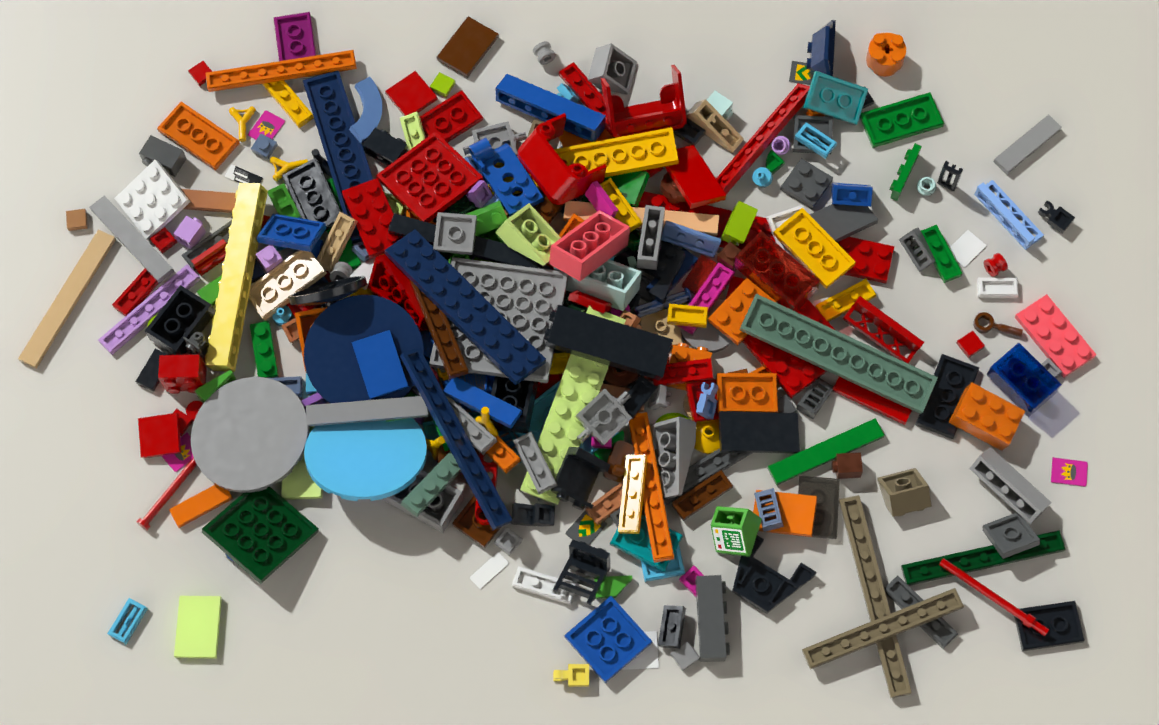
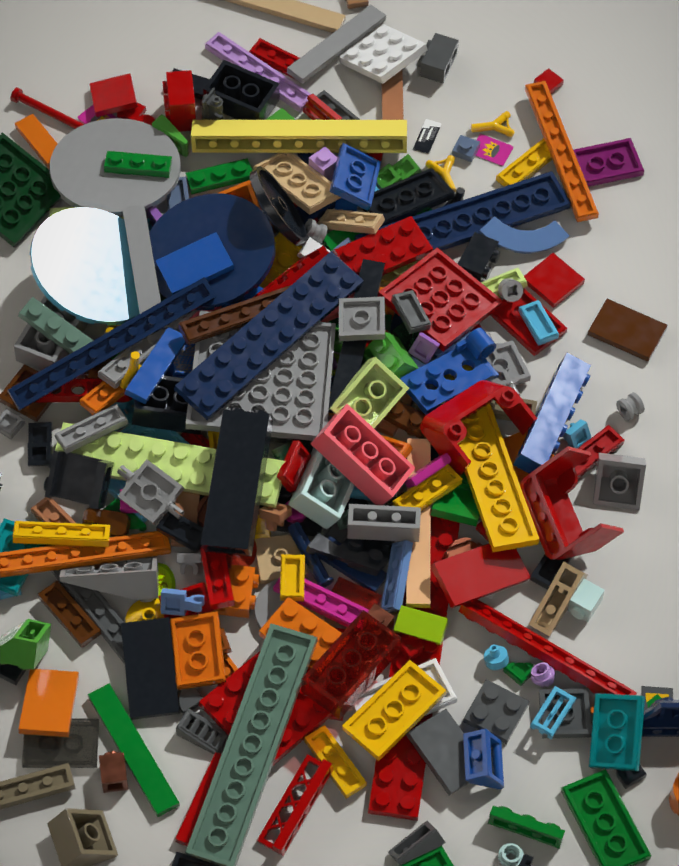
camera: 80 degrees right, 10 degrees down
(163, 240) = (340, 73): red tile -> none
(189, 232) = (350, 92): lavender brick -> none
(198, 135) = (471, 89): orange tile -> none
(254, 411) = (138, 164): none -> green plate
(426, 123) = (506, 287): none -> light grey wheel
(442, 84) = (572, 309): lime tile -> none
(447, 197) = (411, 312): none -> dark grey tile
(456, 109) = (538, 322): none -> medium azure tile
(585, 529) = (23, 498): sticker -> none
(771, 524) = (40, 675): sand blue slope -> none

